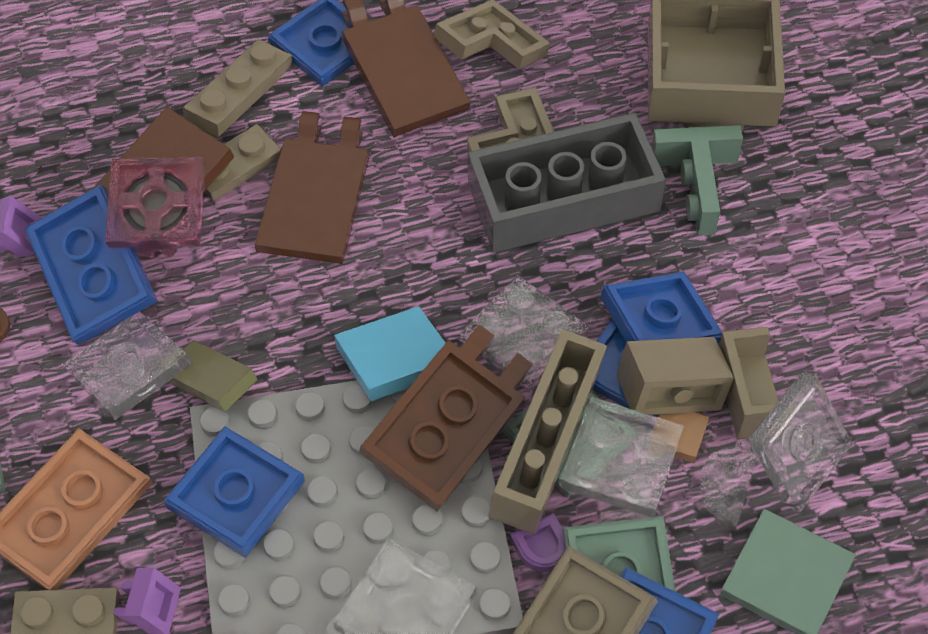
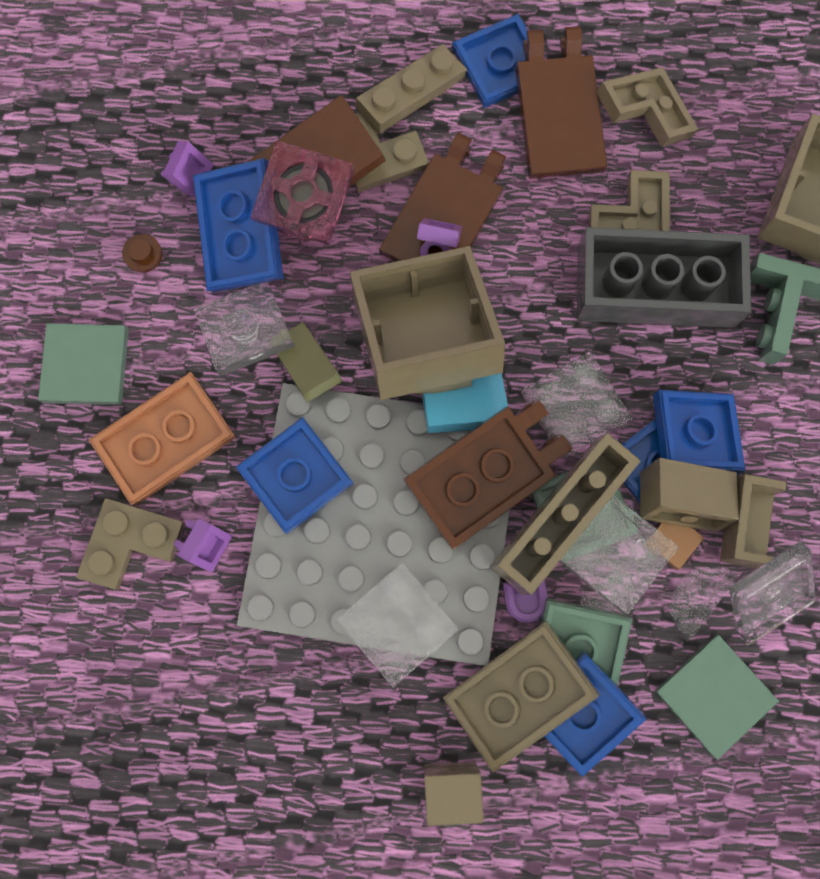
camera: 20 degrees right, 20 degrees up
(315, 207) = (438, 233): none -> medium lavender tile
(333, 289) = (427, 323): none -> dark tan container

